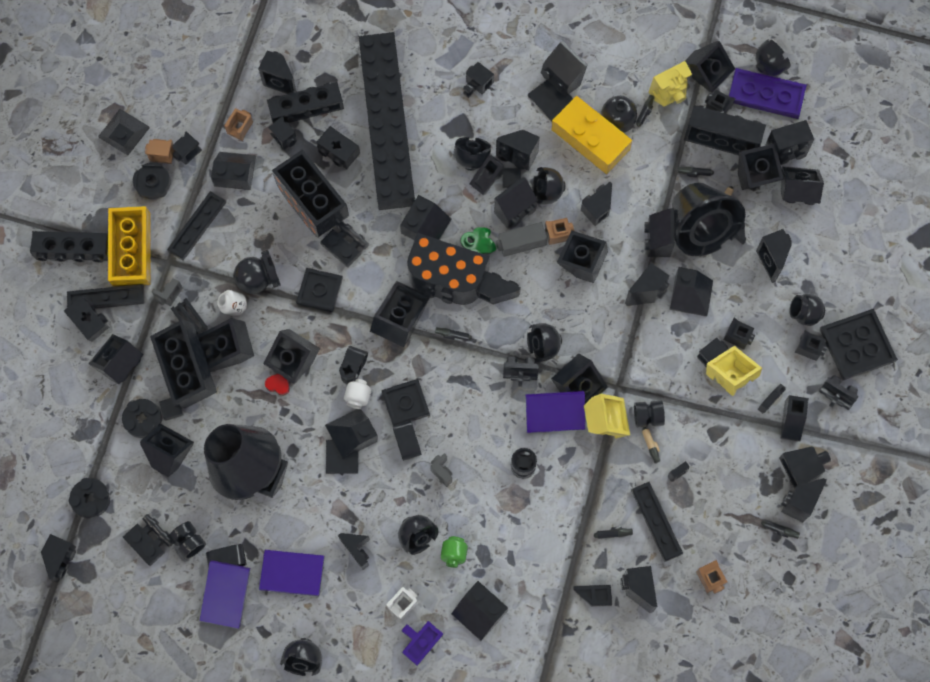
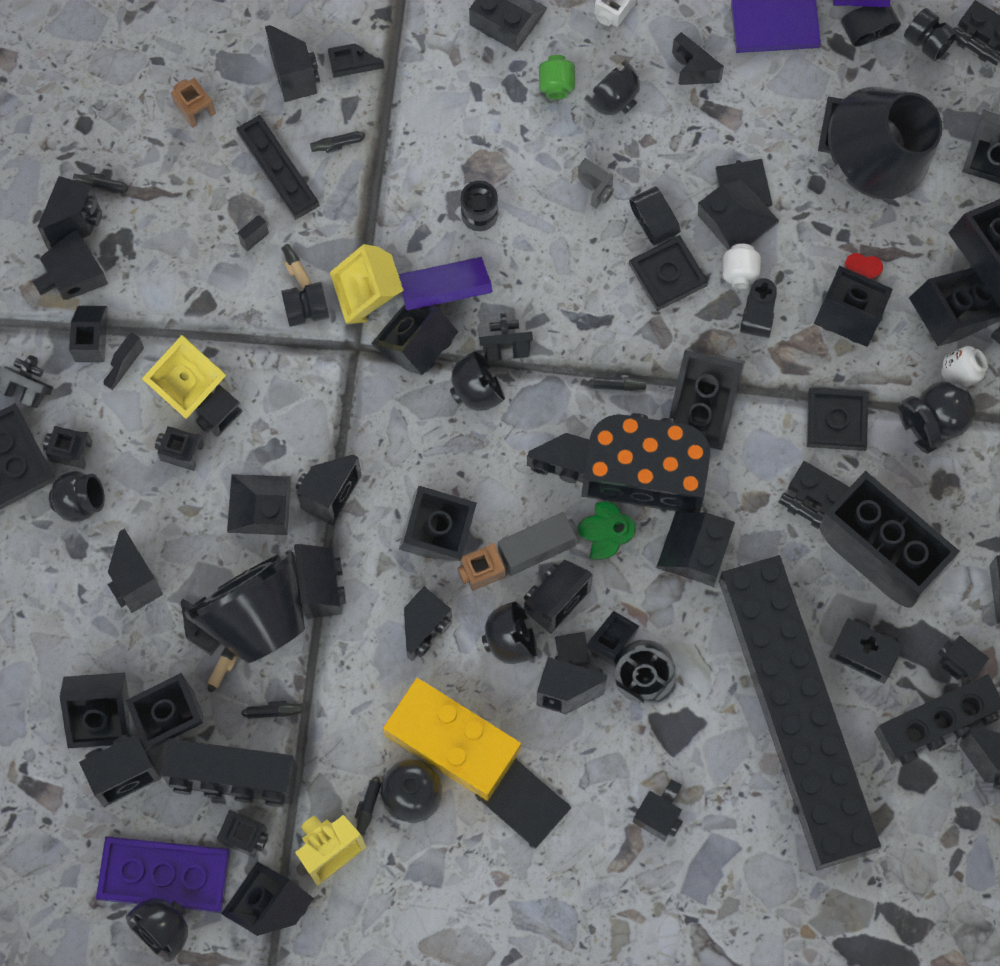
camera: 170 degrees right, 0 degrees up
(564, 69) = (517, 843): black slope -> none

